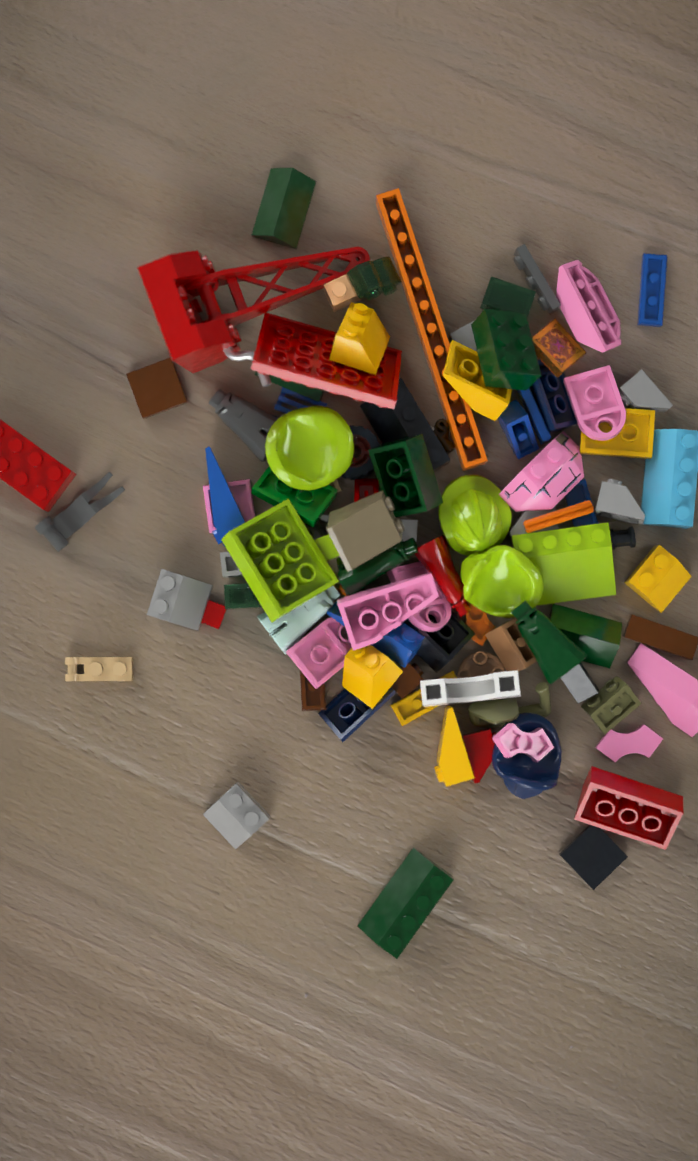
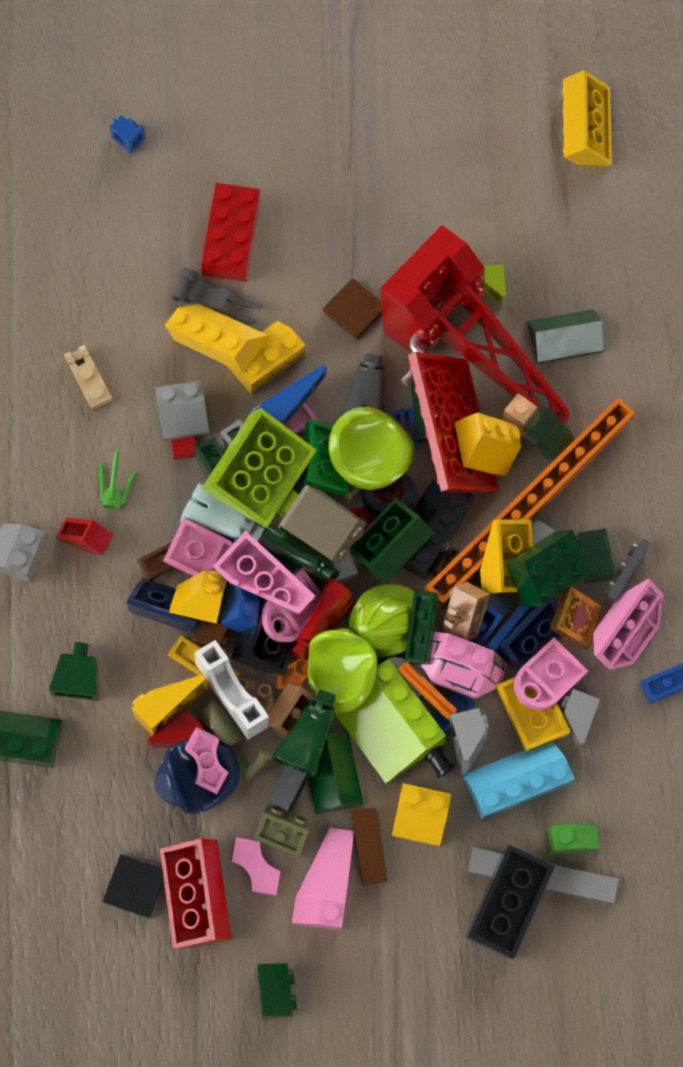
camera: 55 degrees right, 15 degrees down
(78, 65) = (587, 120): none -> yellow slope
(123, 530) = (216, 336): none -> yellow slope
(161, 495) = (276, 356): none -> yellow slope
(197, 241) = (495, 283): none -> lime slope
(229, 704) = (111, 497): none -> bright green plant
(254, 747) = (85, 535): none -> red slope
(380, 816) = (76, 675): none -> dark green torso
(500, 491) = (421, 627): none -> dark green tile
(505, 444) = (465, 611): none -> medium nougat brick

